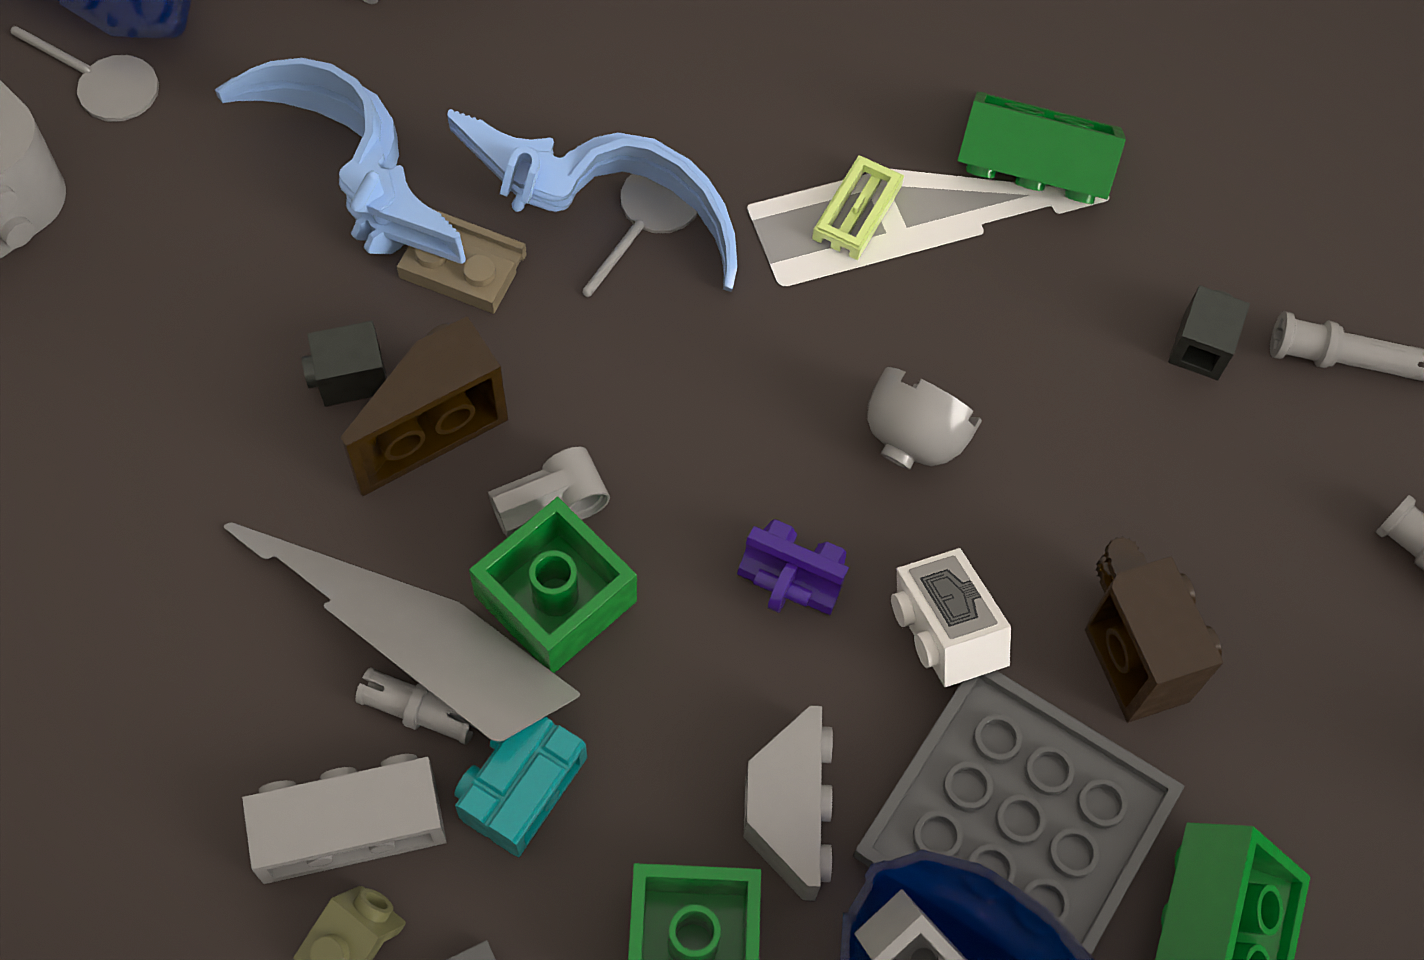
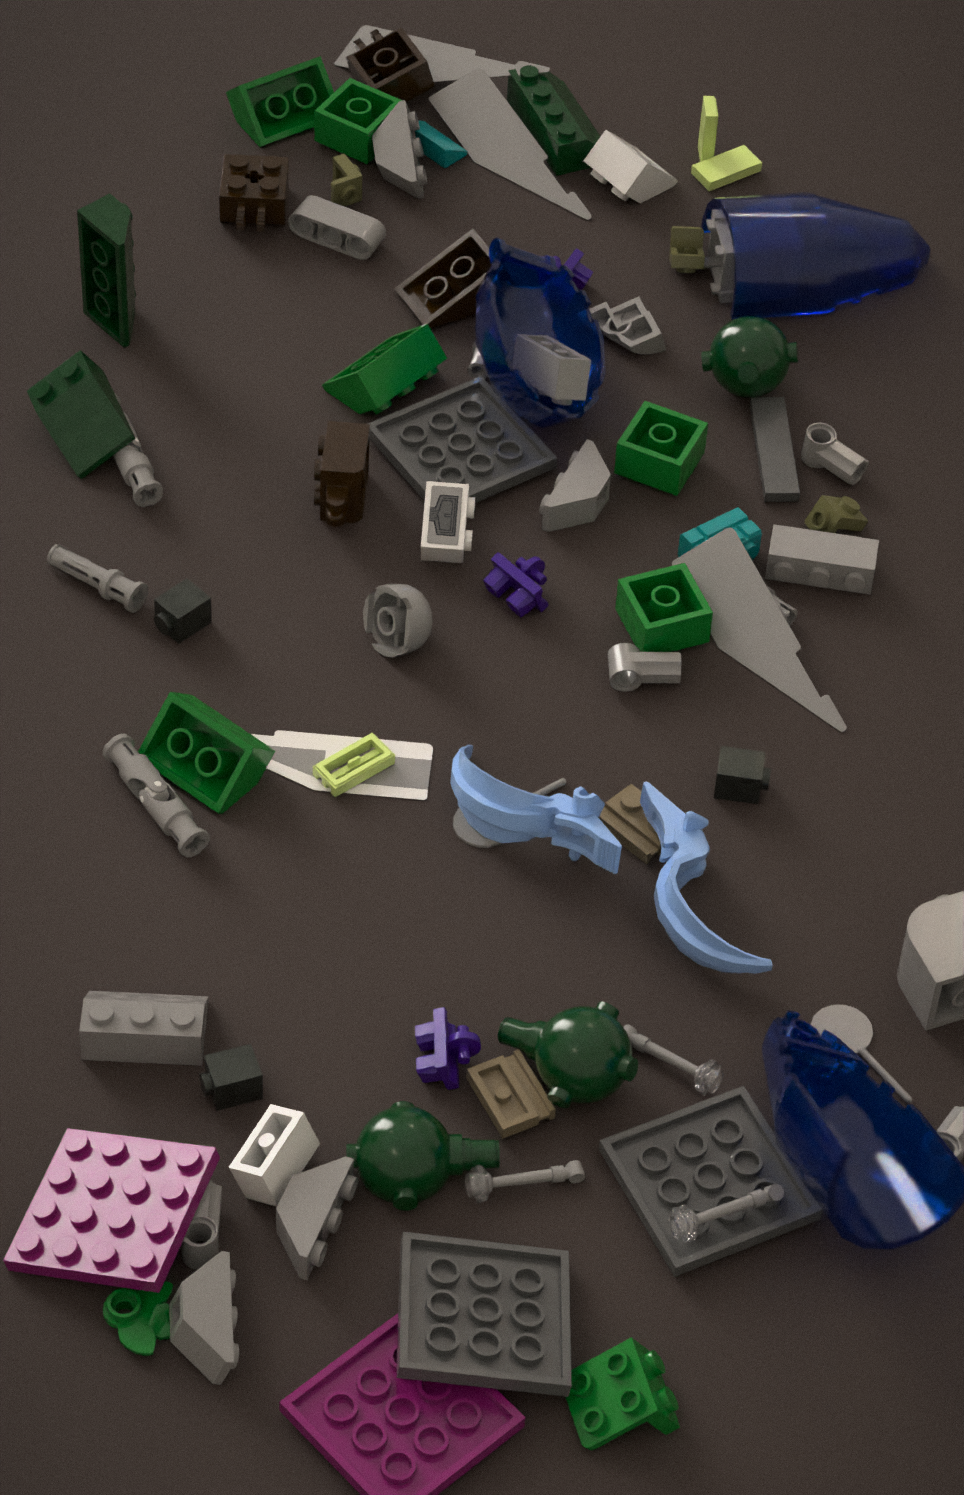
camera: 155 degrees left, 15 degrees down
(429, 405) = (702, 714): dark brown slope -> none
(1075, 77) = (156, 795): none -> light grey piece

